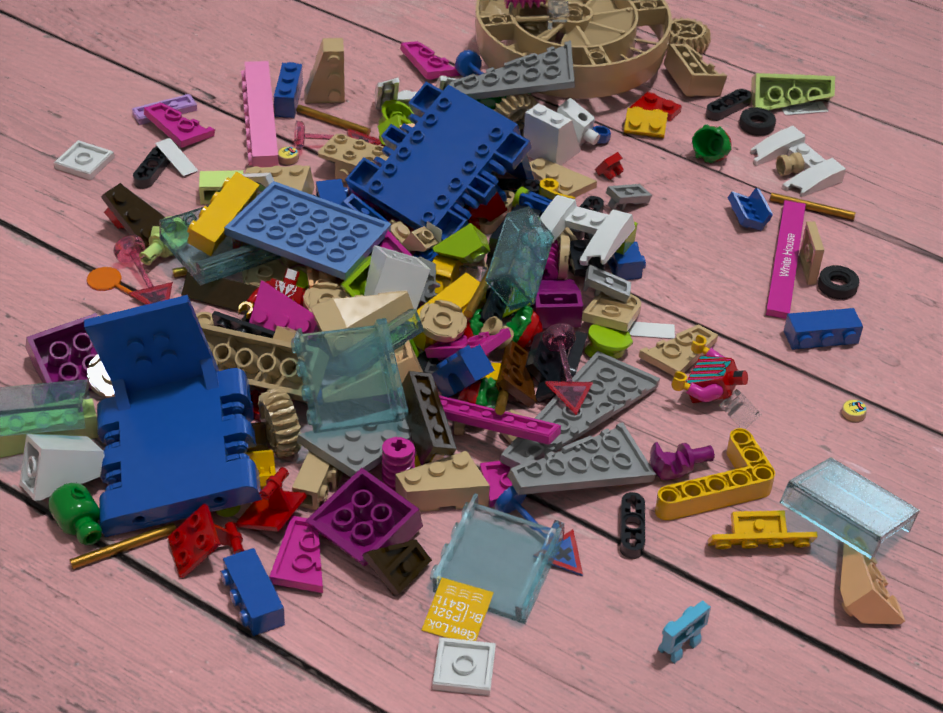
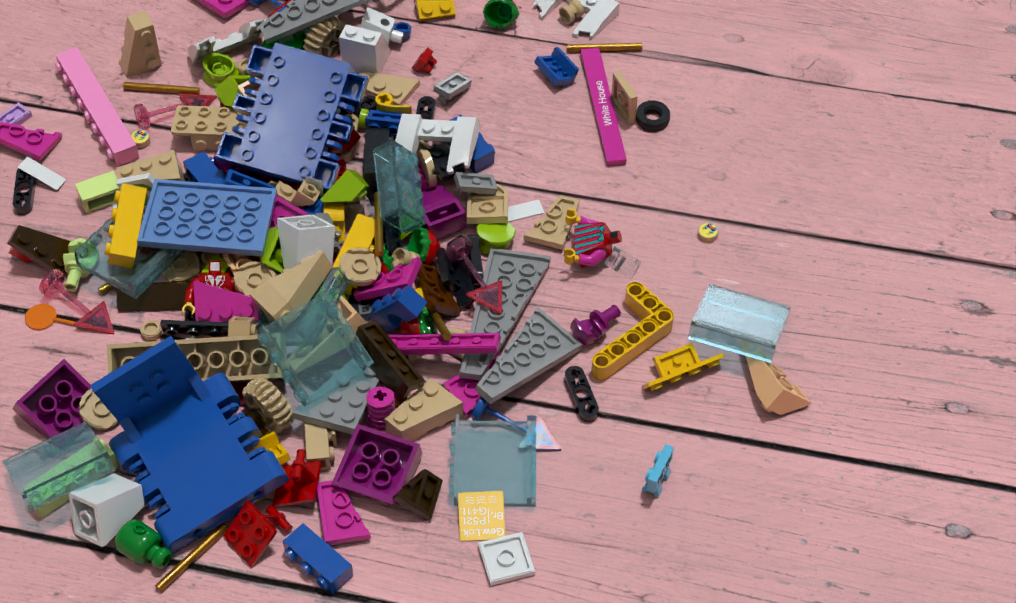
camera: 20 degrees left, 10 degrees up
(288, 90) = (108, 70): blue brick -> none
(823, 328) = (658, 165): blue brick -> none

